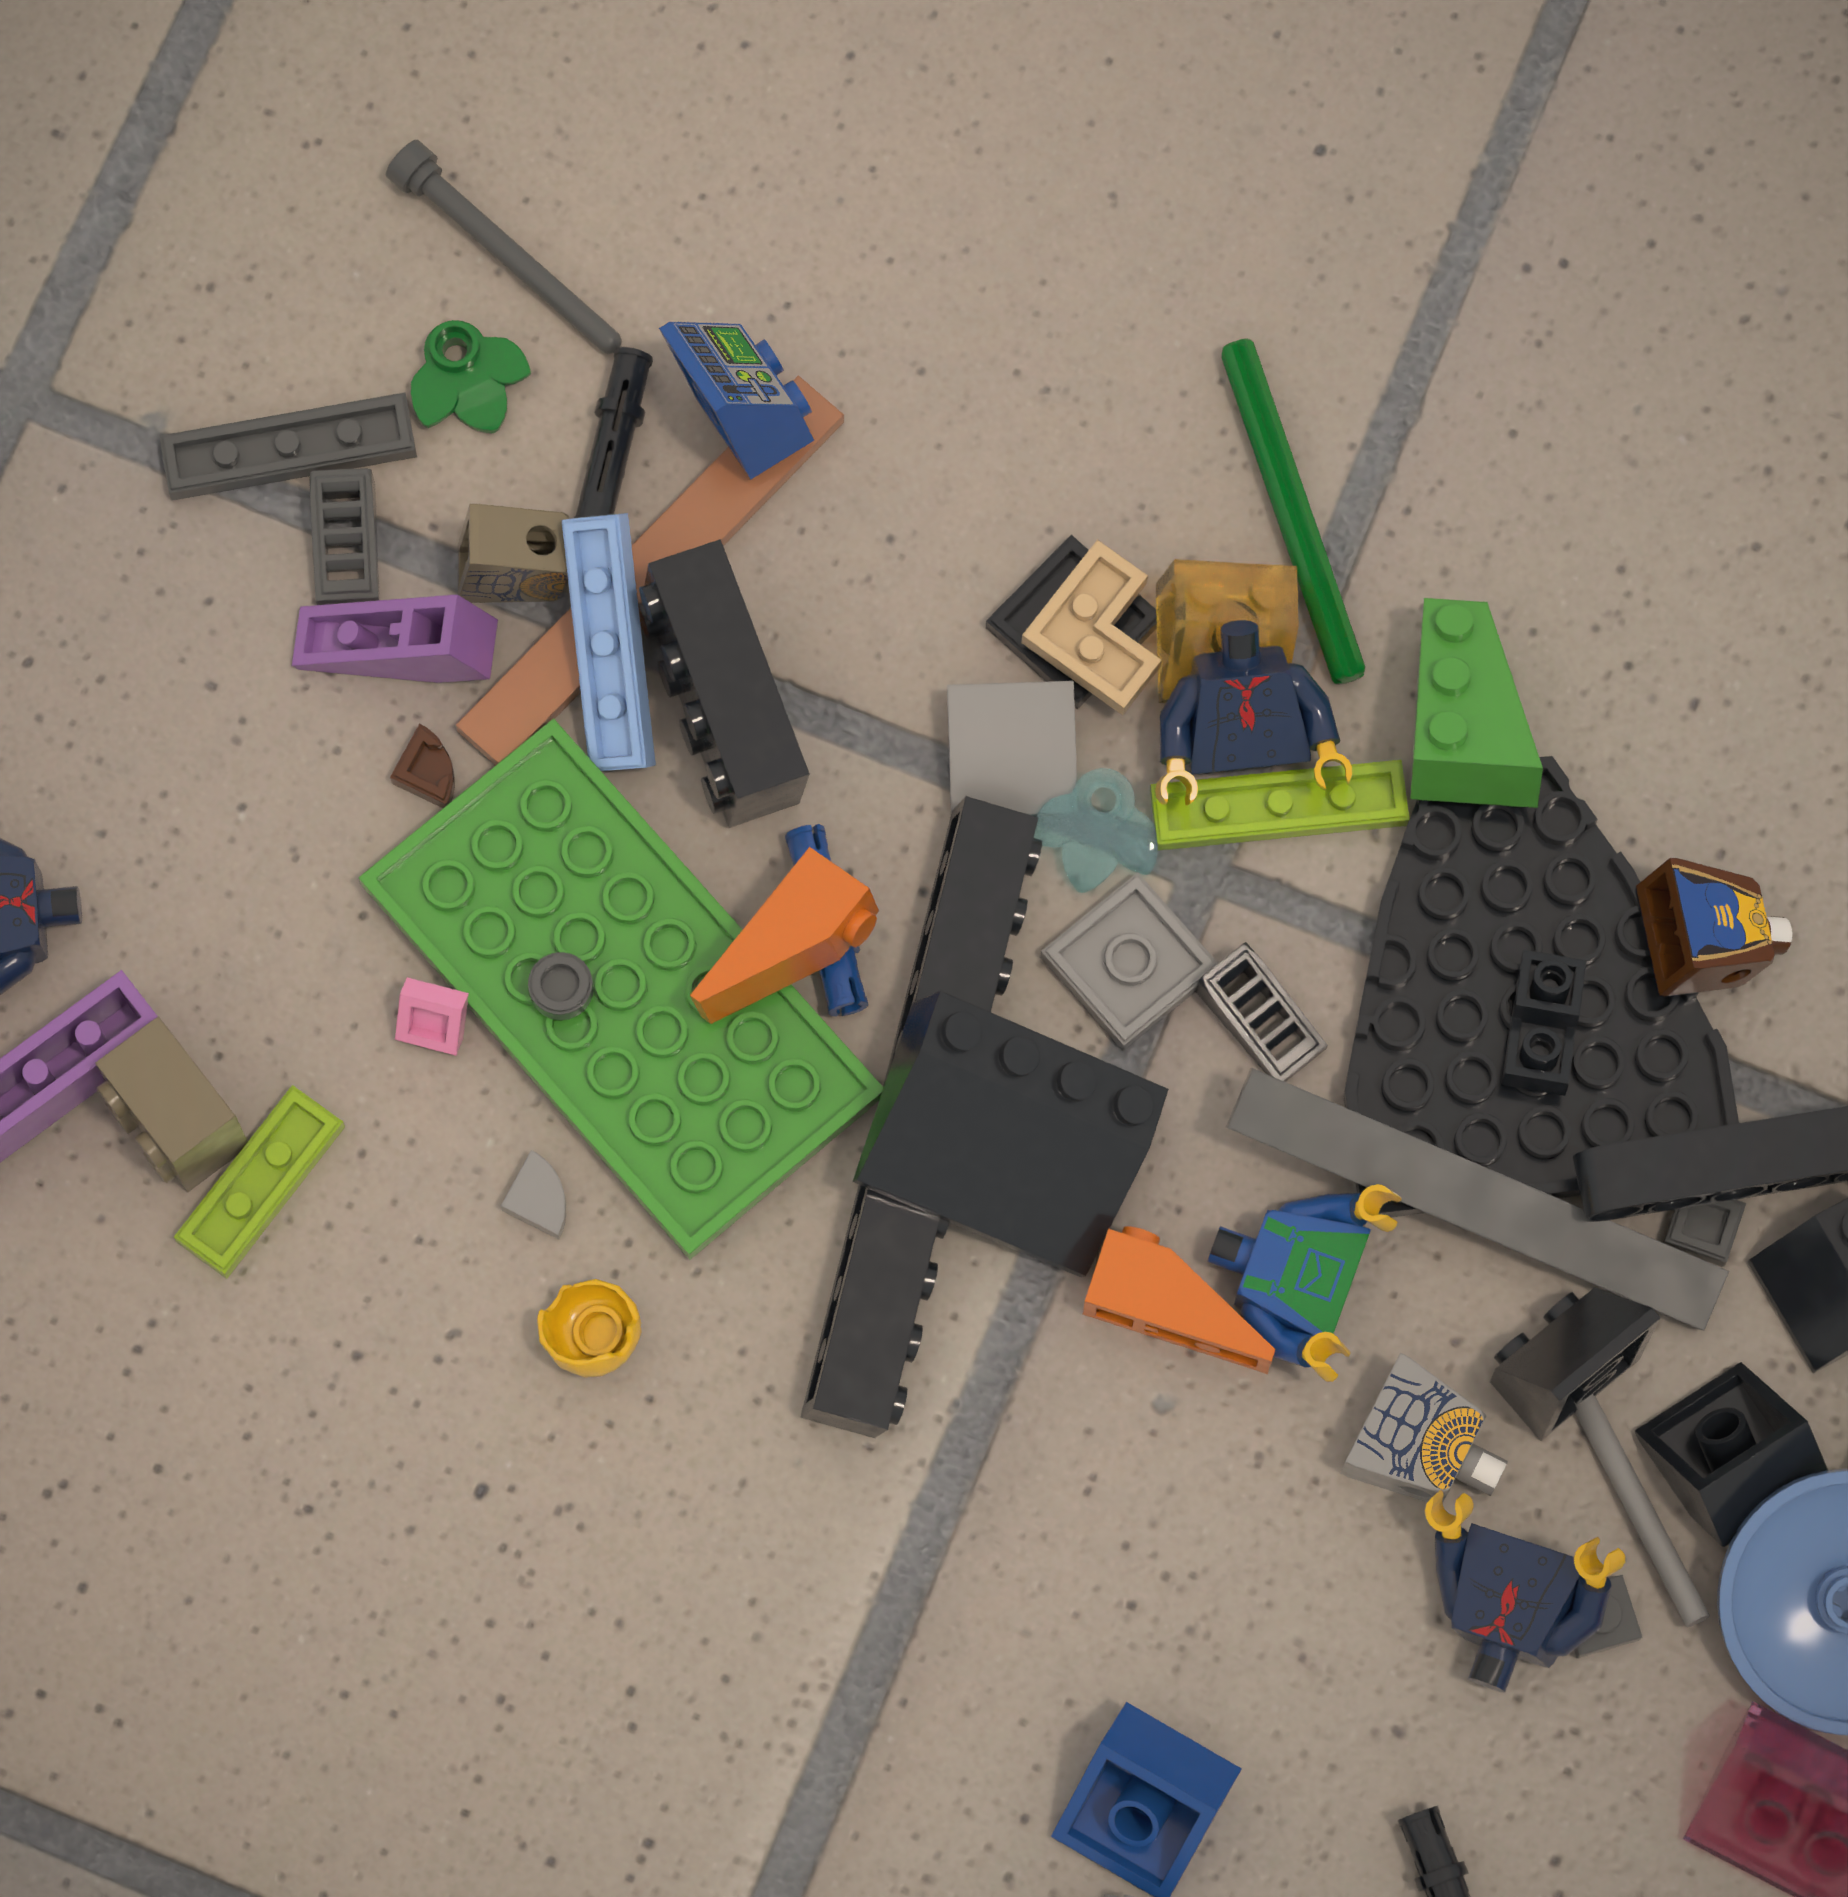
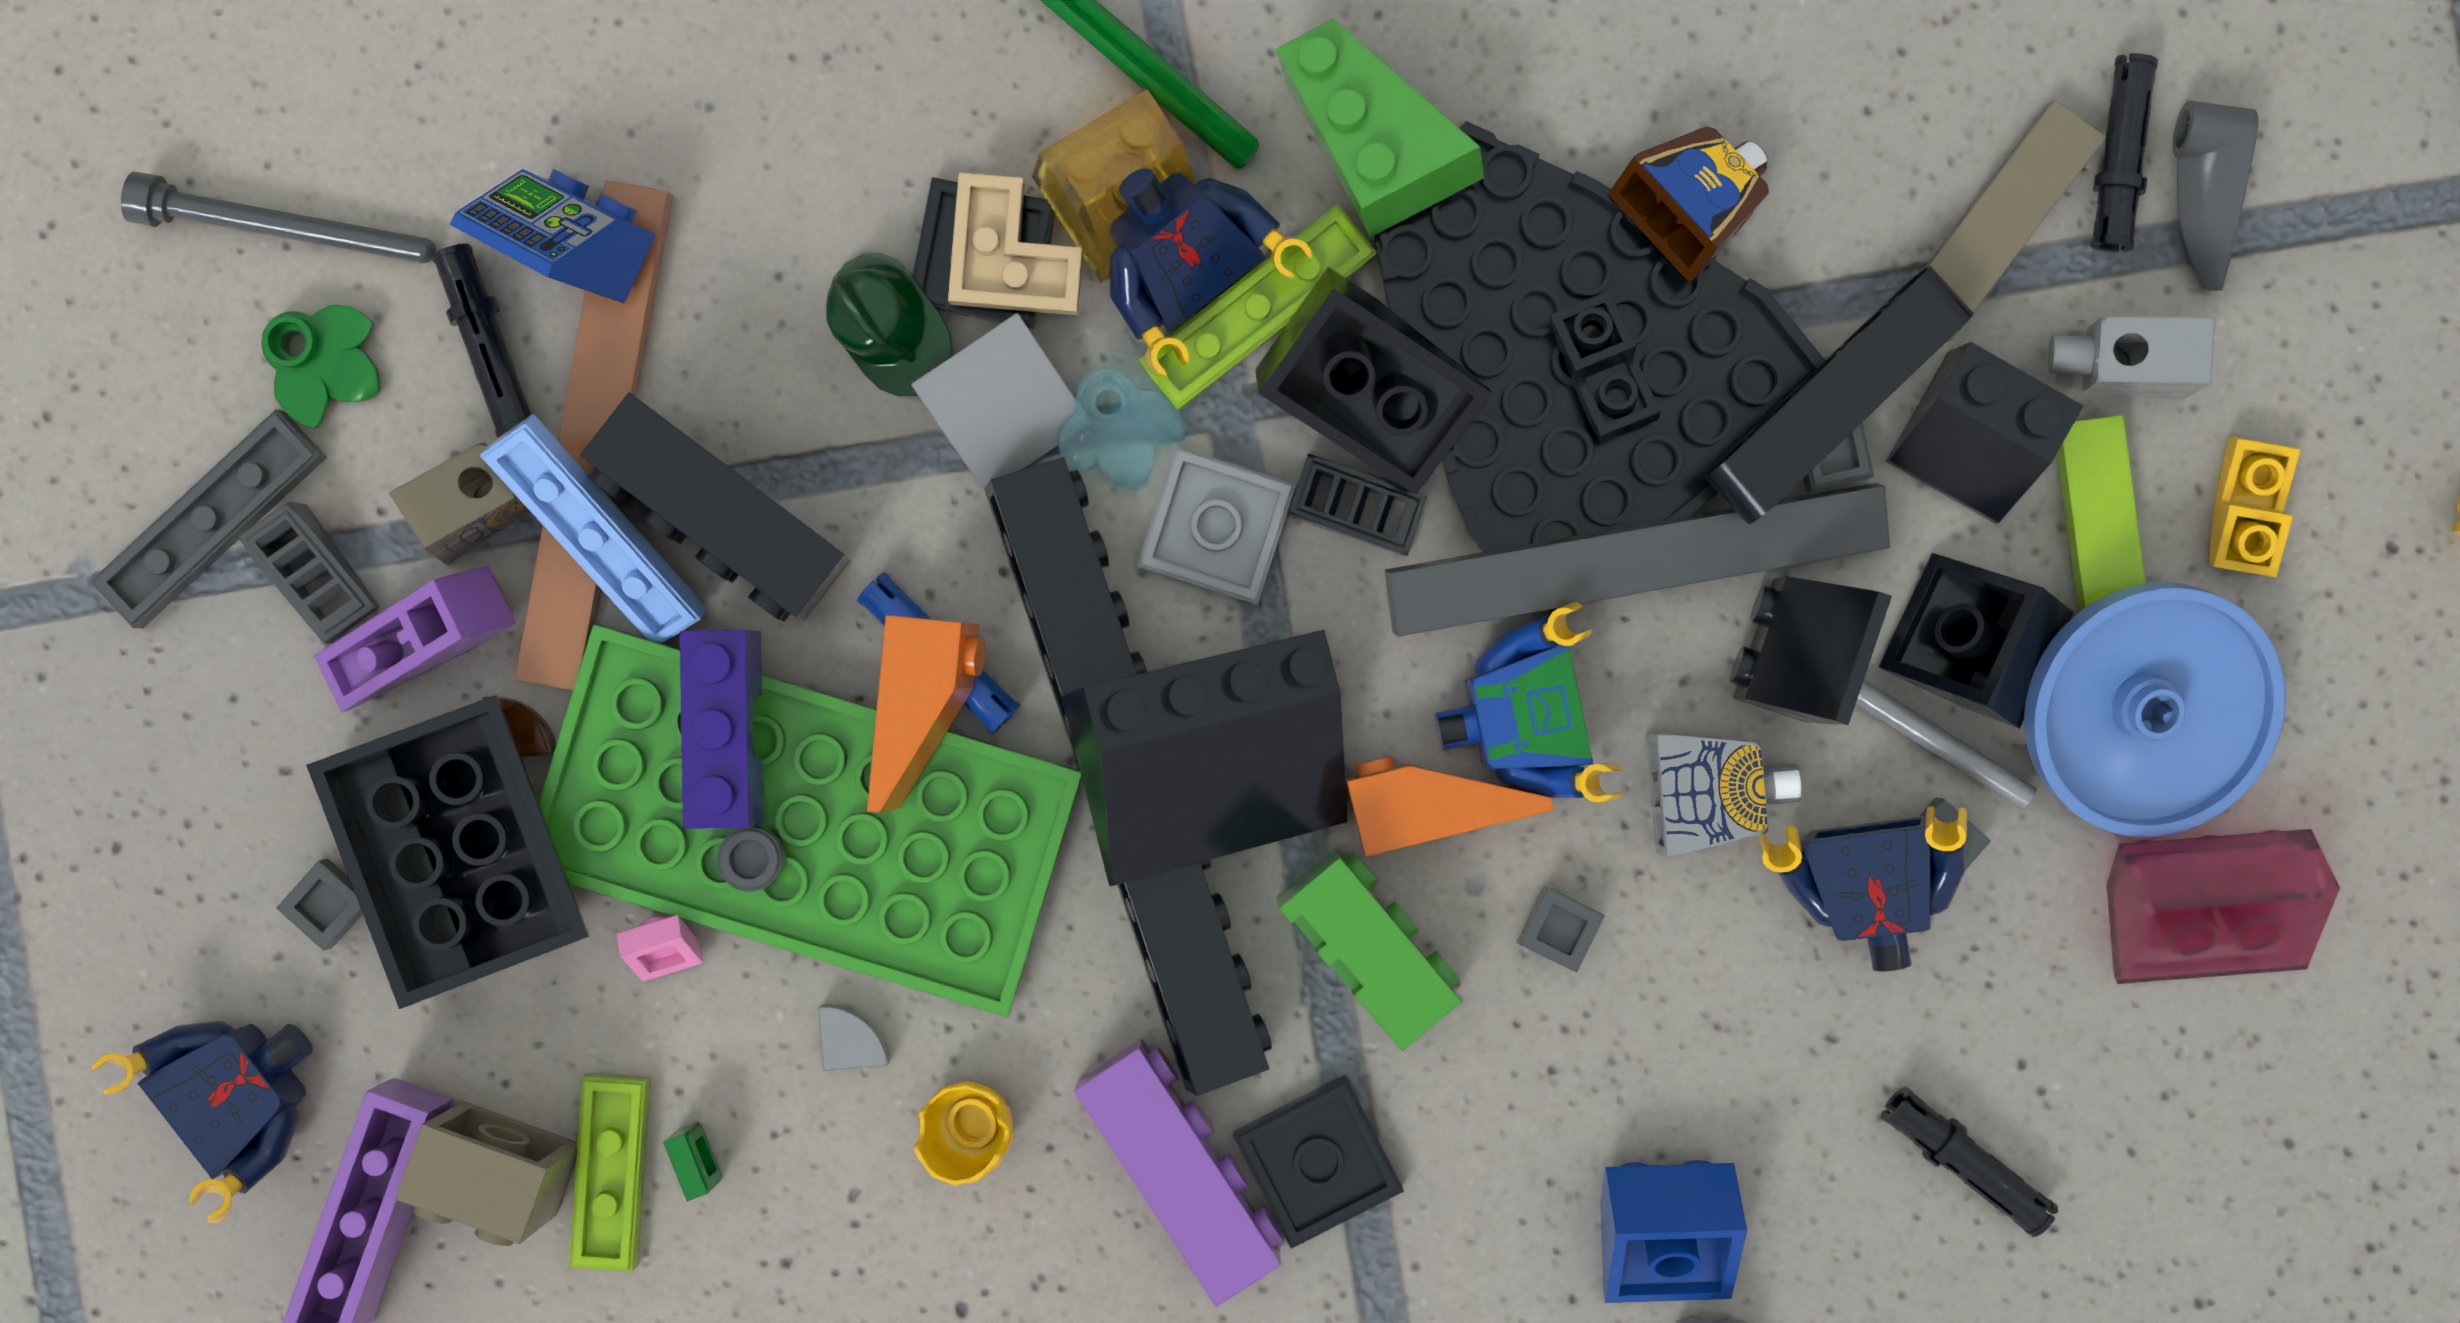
camera: 30 degrees left, 15 degrees up
(175, 810) = (322, 904): none -> dark grey plate
(315, 826) = (447, 851): none -> black slope
(341, 1210) = (693, 1161): none -> green tile
(595, 876) = (718, 754): none -> dark purple arch
(751, 1478) = (1179, 1171): none -> medium lavender brick
(875, 1552) = (1318, 1161): none -> black tile
(956, 627) = (886, 322): none -> dark green piece
(1039, 1382) = (1370, 947): none -> bright green wedge
(1214, 1478) = (1560, 928): none -> dark grey plate
(1336, 916) = (1370, 382): none -> black slope

